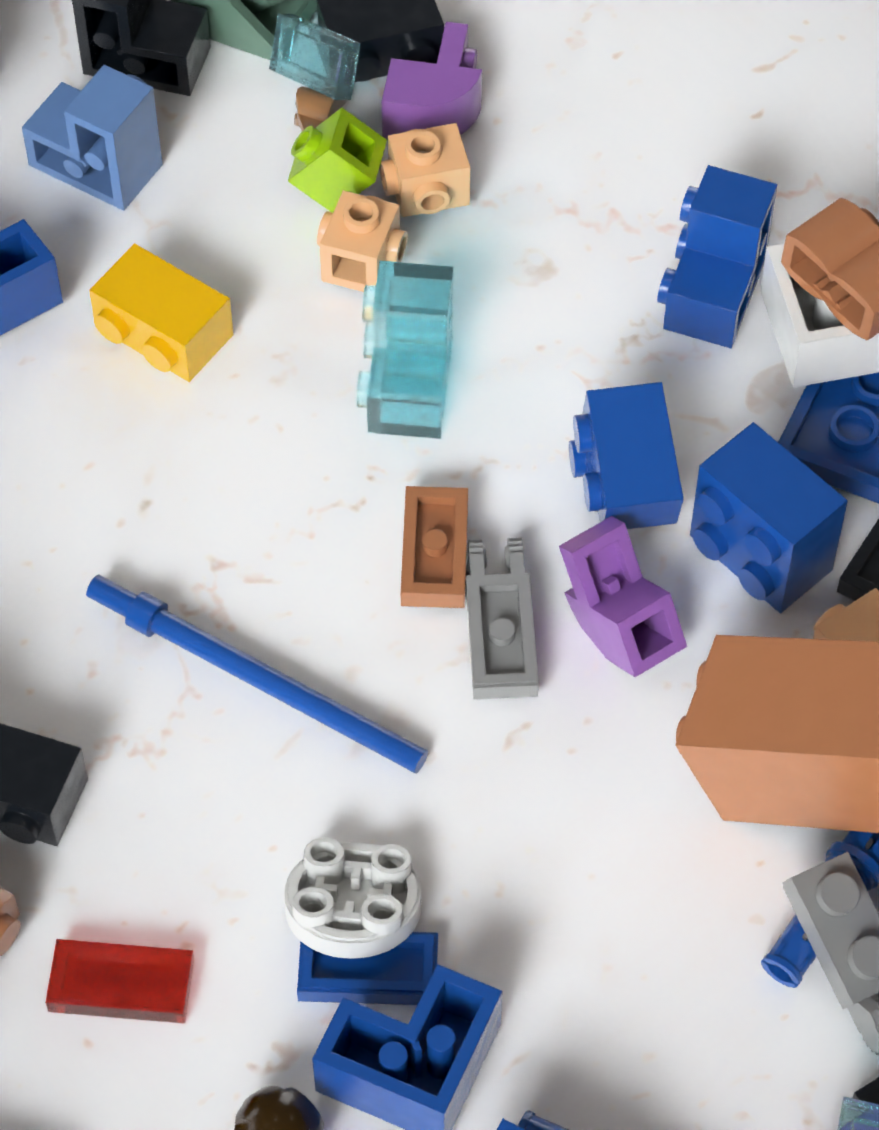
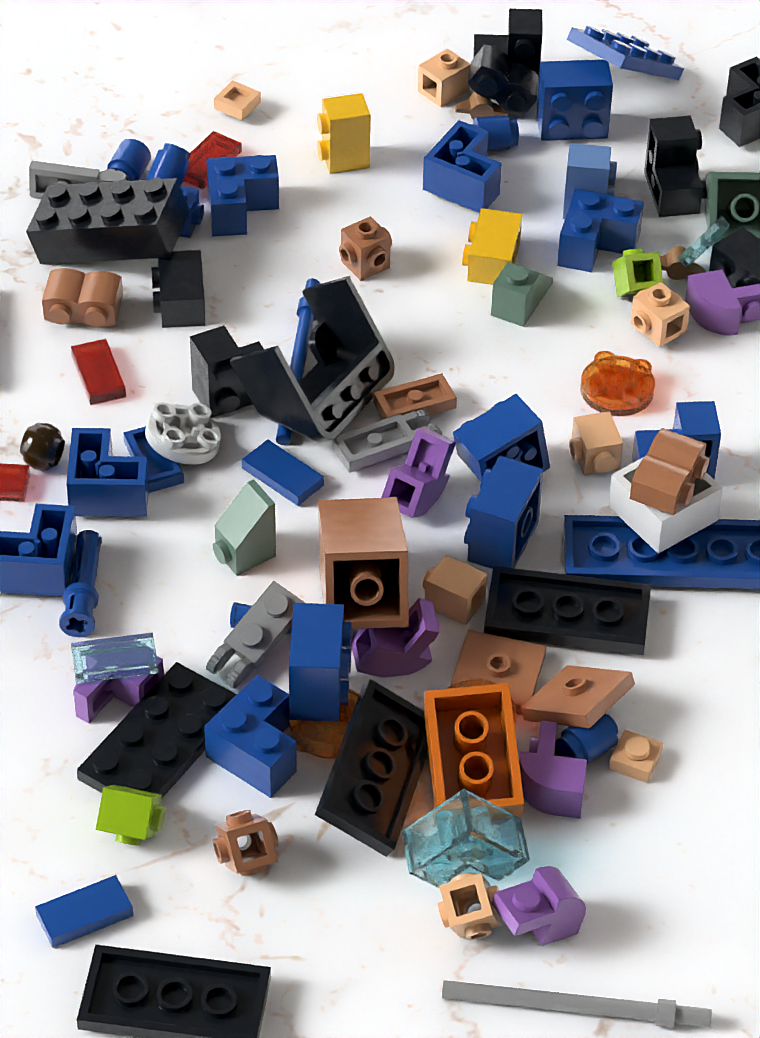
camera: 65 degrees right, 10 degrees down
(69, 479) = (365, 248): none -> nougat brick
(196, 172) = (597, 224): none -> blue brick
(269, 777) = (212, 373): none -> black brick
(279, 320) = (518, 293): none -> sand green slope
(339, 628) = (348, 370): none -> black windscreen
(357, 238) = (591, 303): light nougat brick -> none
(409, 349) = (530, 348): clear light blue brick -> none
(494, 788) = (282, 472): none -> blue tile
(521, 284) = (617, 384): none -> clear orange tile
(639, 880) = (246, 530): none -> sand green slope
(646, 350) = (596, 443): none -> light nougat brick

